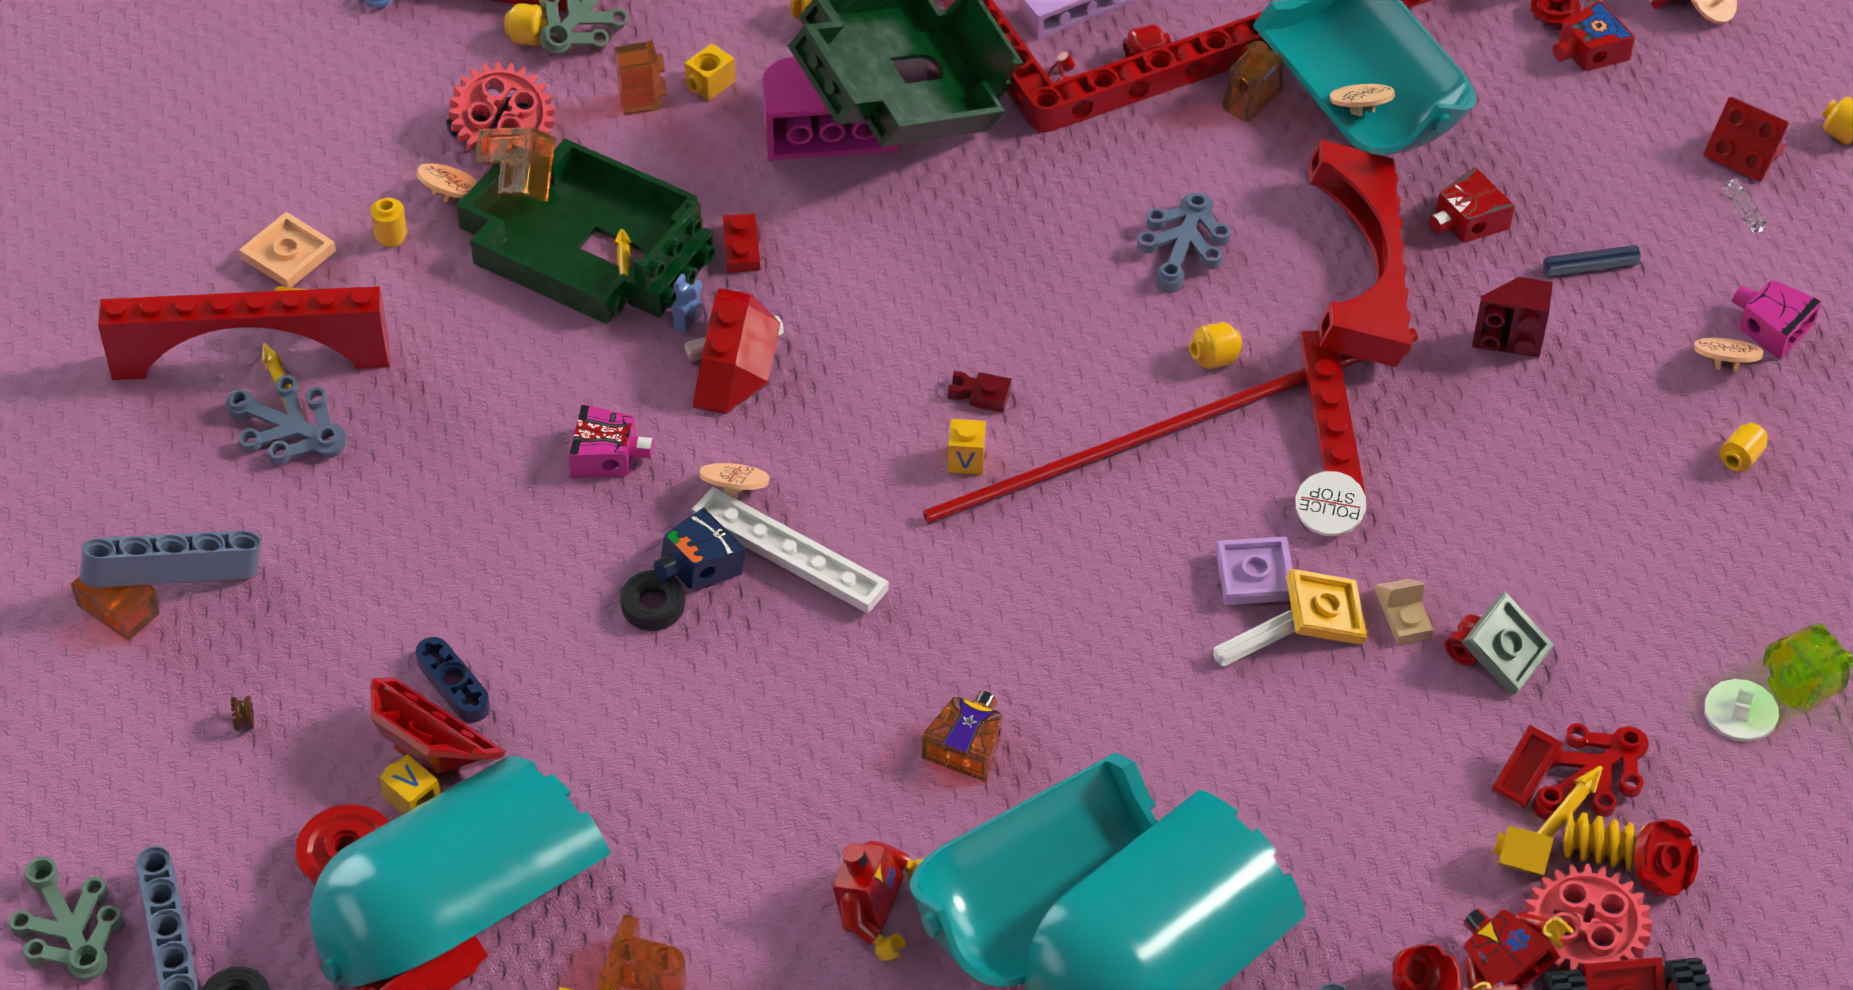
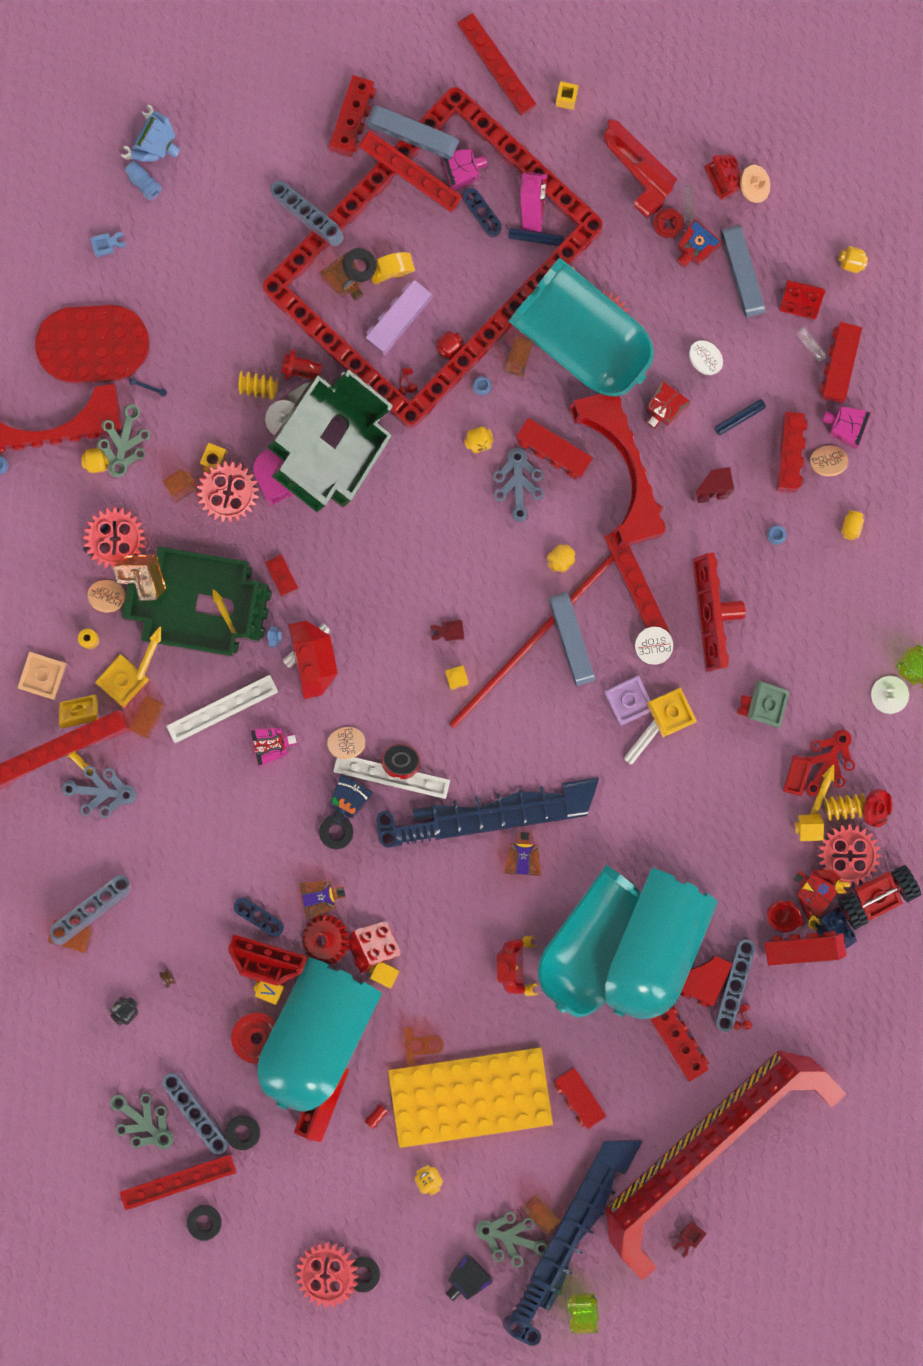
camera: 20 degrees left, 35 degrees up
(138, 735) = (124, 1011): none -> black head
(413, 297) = (120, 681): none -> yellow tile
(423, 345) = (147, 717): none -> clear orange brick
(495, 239) = (154, 640): none -> yellow piece
(551, 376) = (222, 709): none -> white plate
(556, 739) = (335, 935): none -> red gear
(574, 679) = (320, 897): none -> torso
(629, 770) = (372, 946): none -> bracket
(630, 830) = (384, 974): none -> yellow brick
(684, 95) = (244, 493): none -> coral gear
(815, 527) = (400, 761): none -> black tile
(962, 662) = (505, 813): none -> dark blue piece
(1143, 164) = (479, 439): none -> yellow head
(1177, 108) = (482, 385): none -> medium blue plate
(1188, 452) = (571, 639): none -> sand blue beam
(1262, 209) = (553, 448): none -> red brick
(1362, 96) = (586, 355): light nougat piece -> none
(1404, 610) = (709, 695): tan slope -> none
(1456, 485) = (713, 612): none -> red plate
(1559, 169) = (705, 357): none -> white piece
(1603, 424) = (776, 535): none -> medium blue plate
(1657, 89) = (742, 271): none -> sand blue beam
(1664, 321) = (790, 452): none -> red brick
(1787, 232) = (841, 362): none -> red brick

